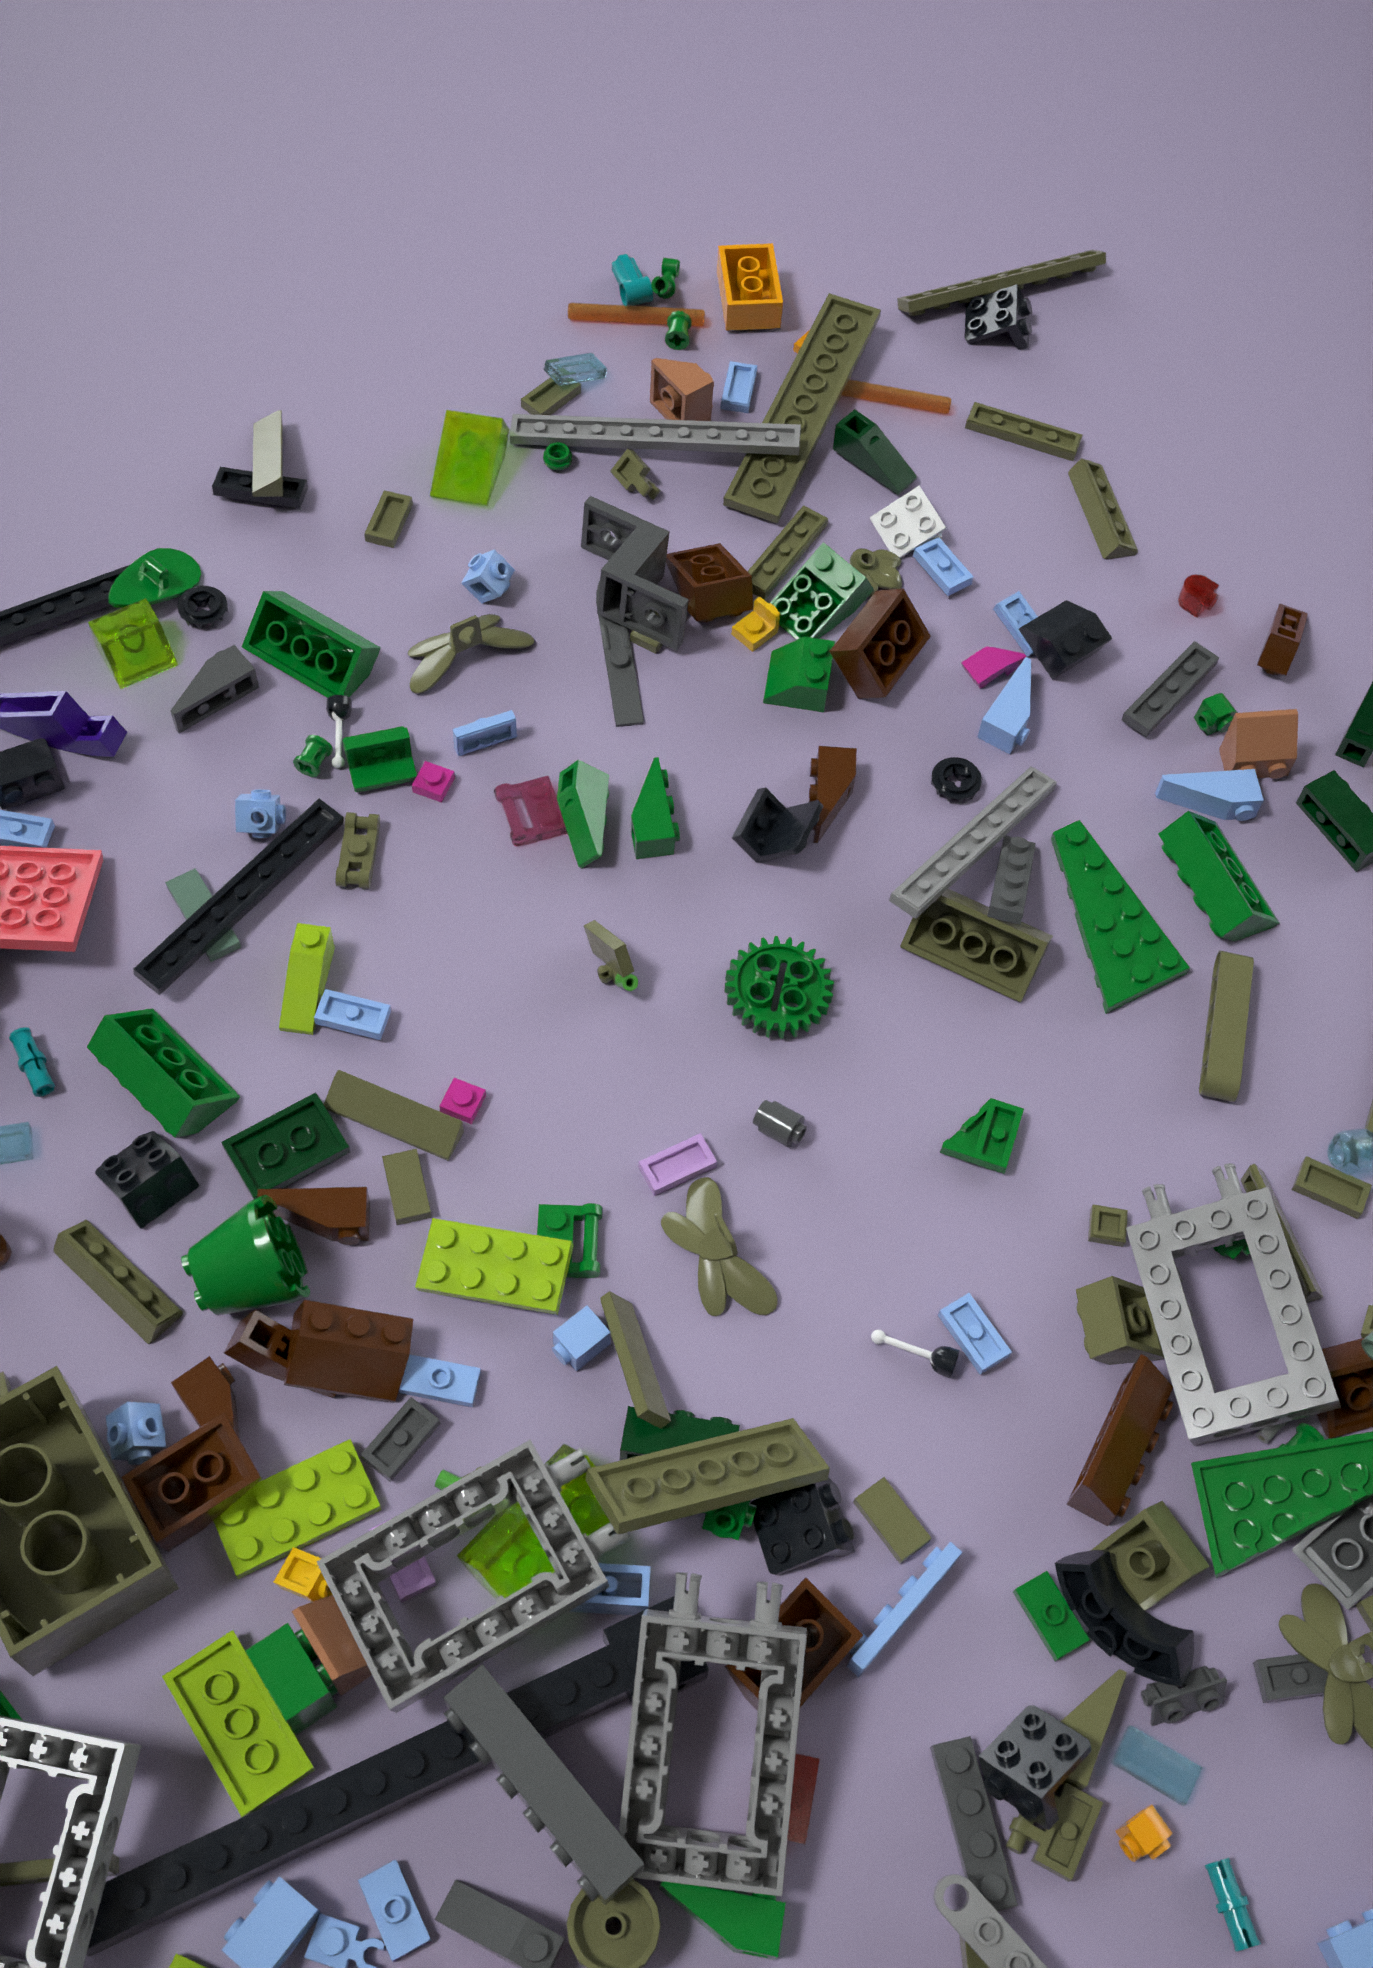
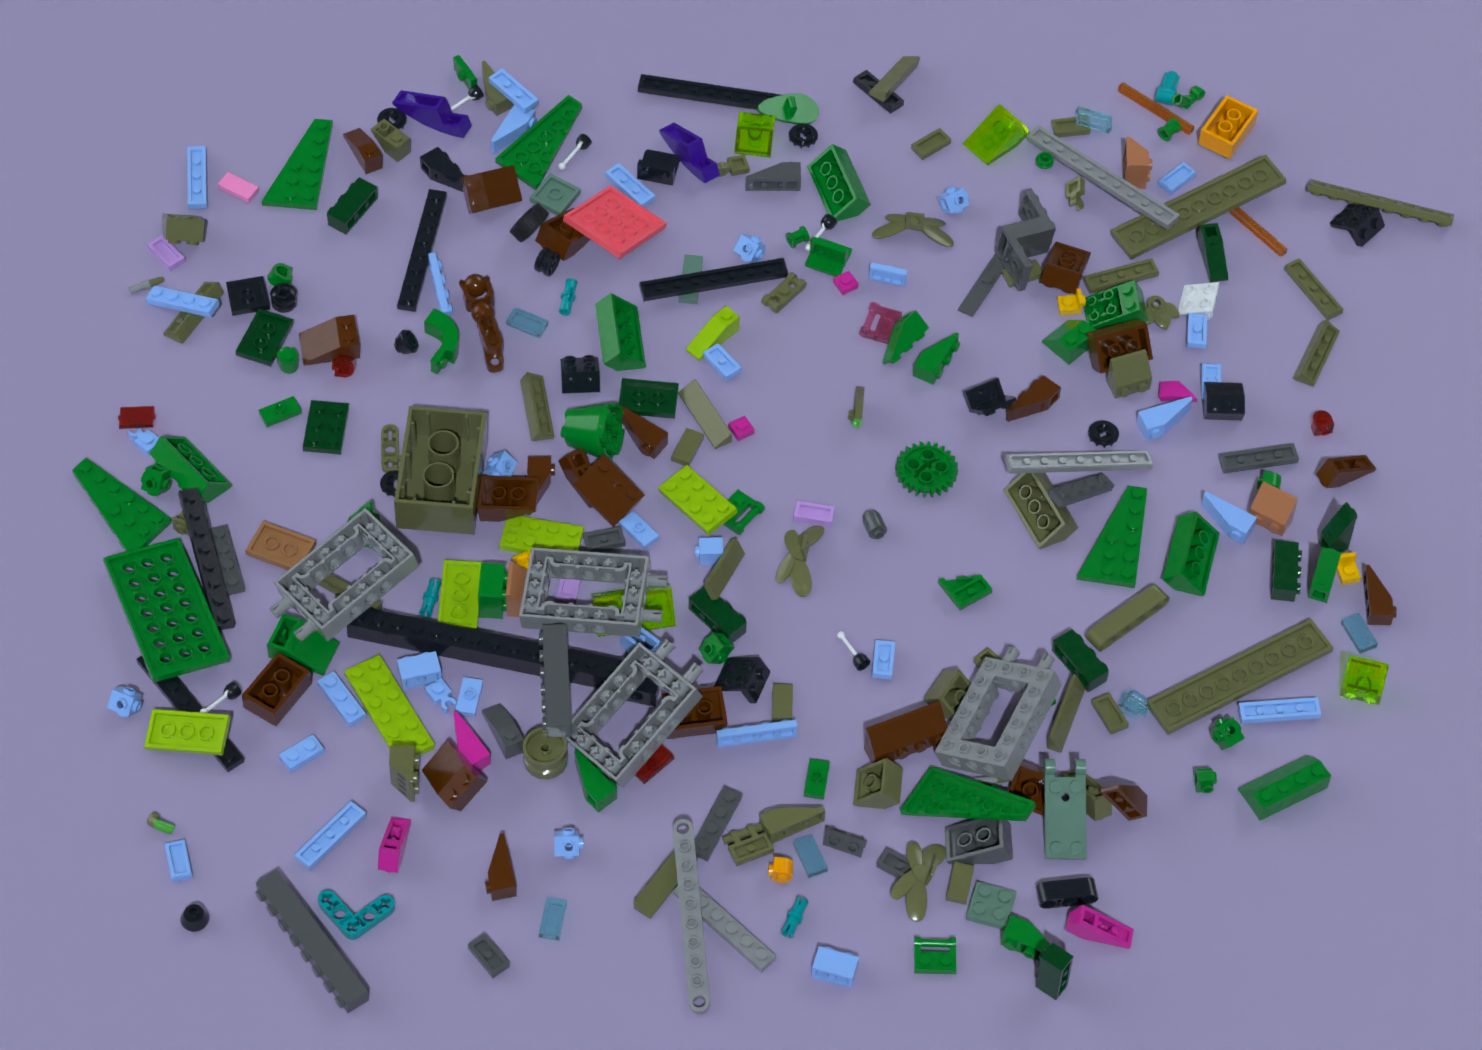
camera: 40 degrees right, 5 degrees down
(138, 703) = (735, 165): none -> olive plate
(187, 1766) = (430, 598): none -> teal pin
(706, 1475) = (713, 622): olive plate -> none
(924, 676) = (1129, 374): none -> olive slope
(1032, 1762) = (752, 806): black bracket -> none
(1119, 1623) = (842, 795): black brick -> none
(1229, 1134) = (1080, 660): none -> dark green brick

